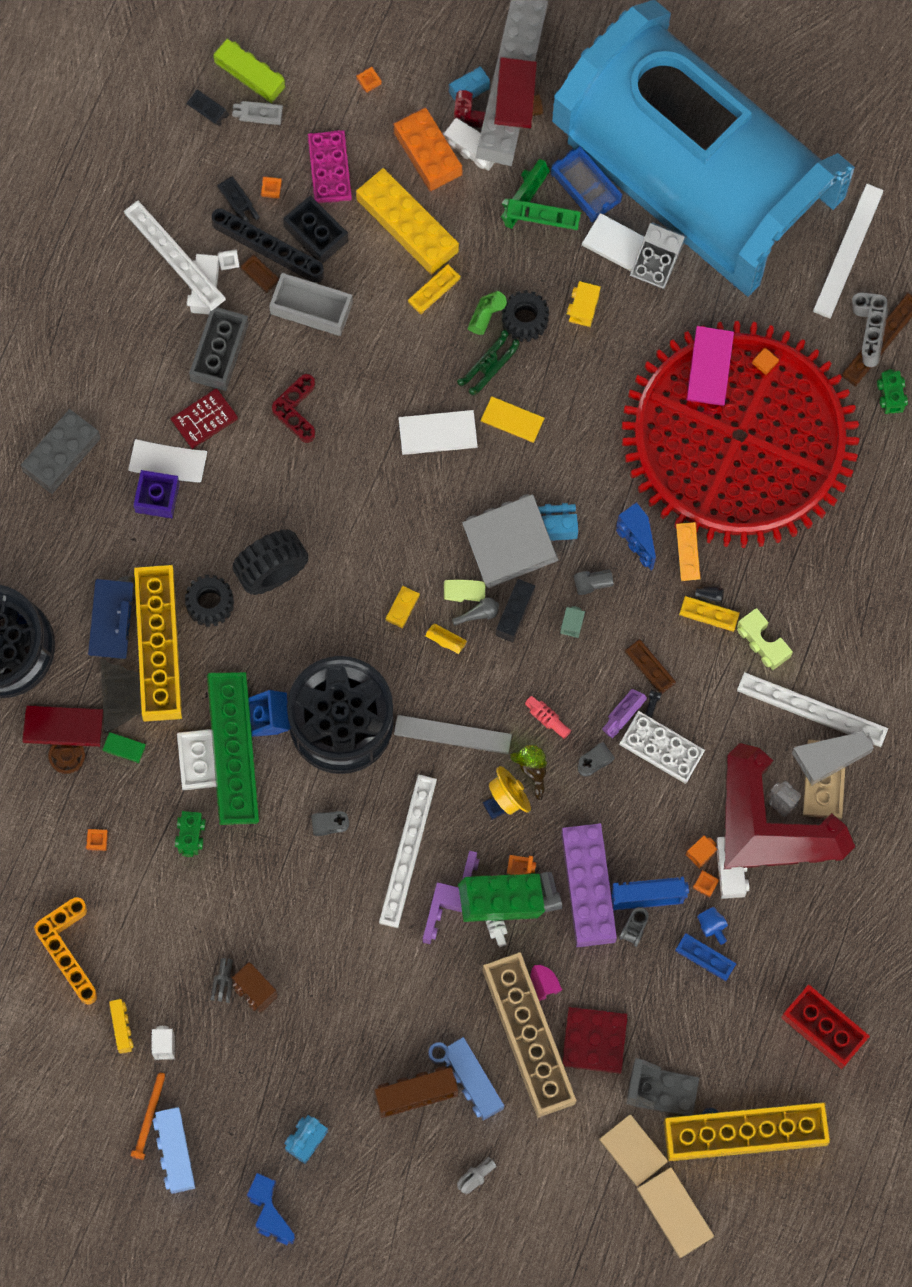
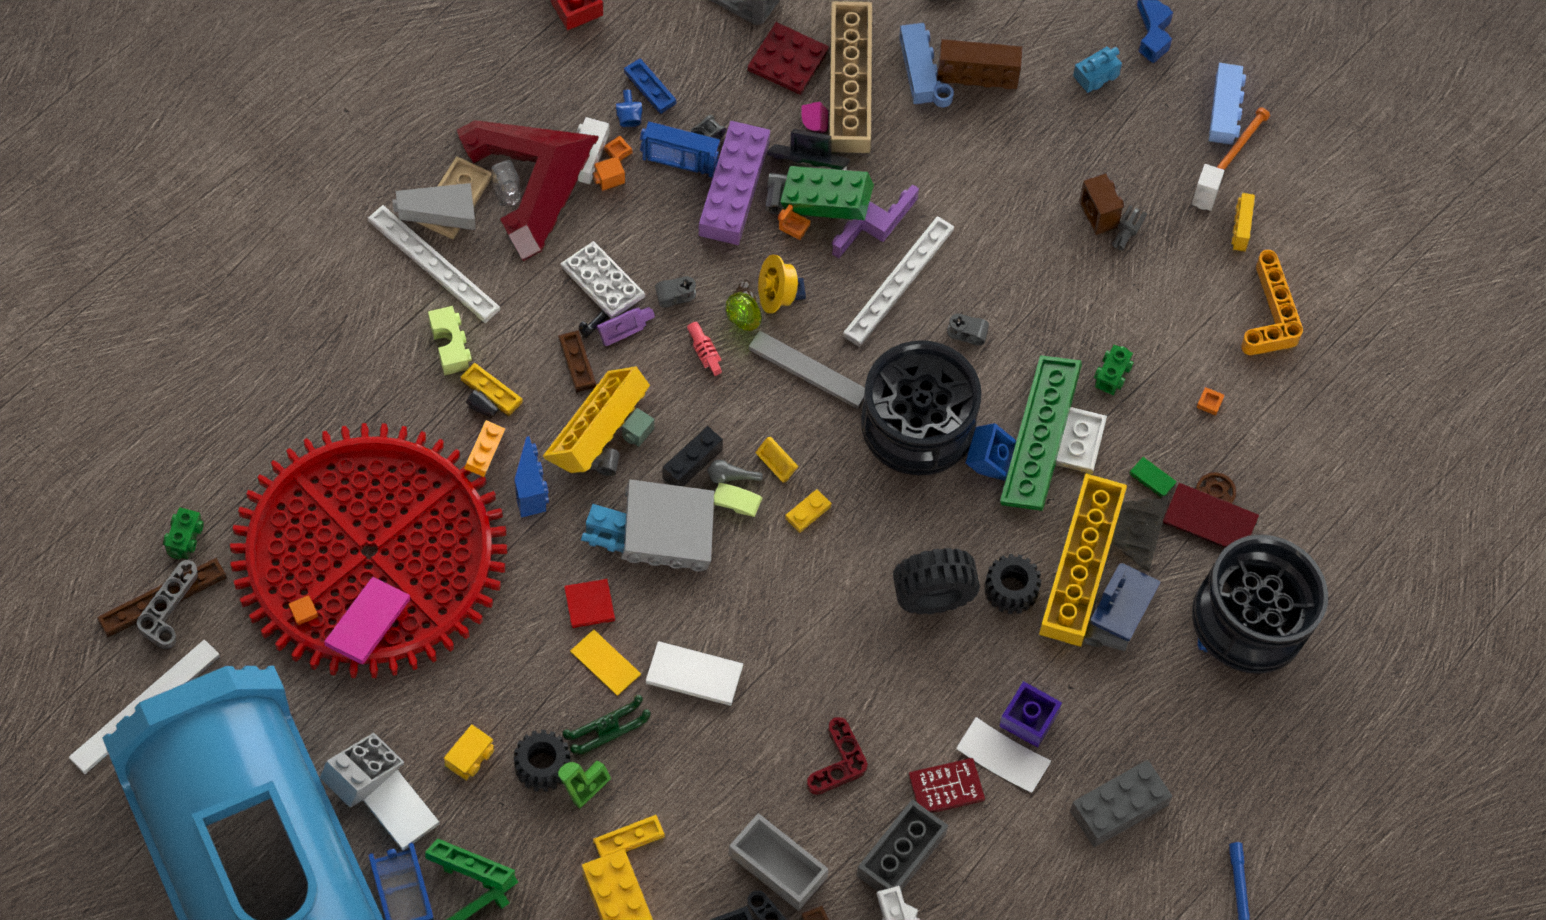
camera: 160 degrees left, 10 degrees down
(534, 937) = (810, 149): none -> black bracket
(546, 460) = (589, 603): none -> red tile
(607, 607) = (597, 420): none -> yellow slope

